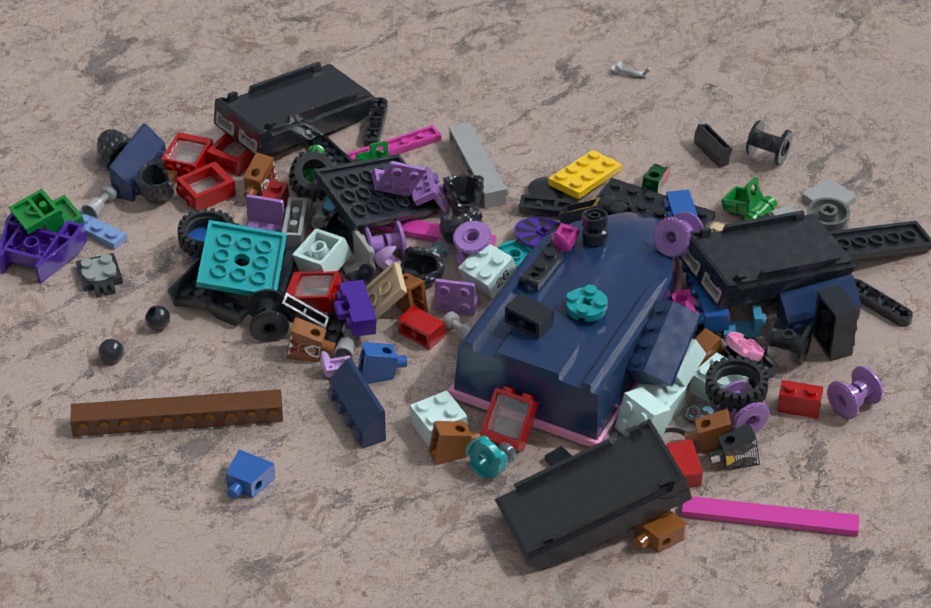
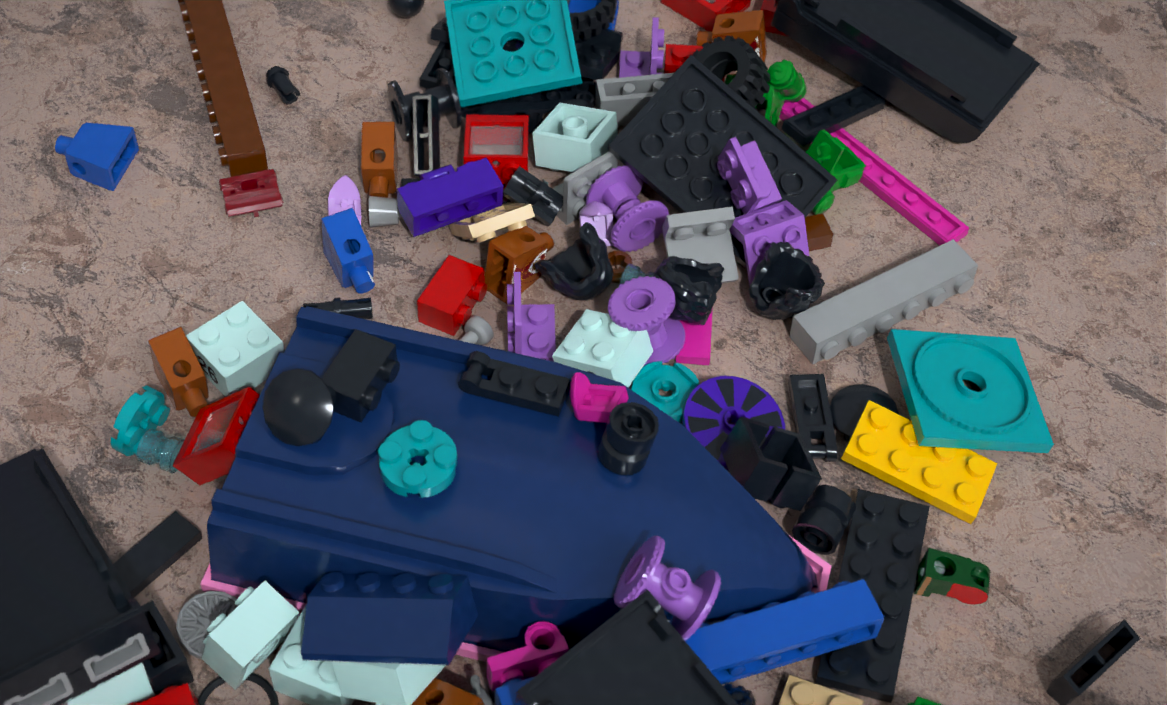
camera: 75 degrees right, 10 degrees up
(212, 386) = (279, 80): none -> black pin
(304, 409) = (251, 193): none -> dark red piece
(357, 404) = (250, 248): dark blue slope -> none
(375, 122) = (989, 155): black beam -> none
(415, 378) = (357, 308): none -> black pin
(425, 217) = (703, 237): none -> light grey bracket
(547, 146) = (953, 416): none -> teal piece
(548, 336) = (298, 407): none -> black dish

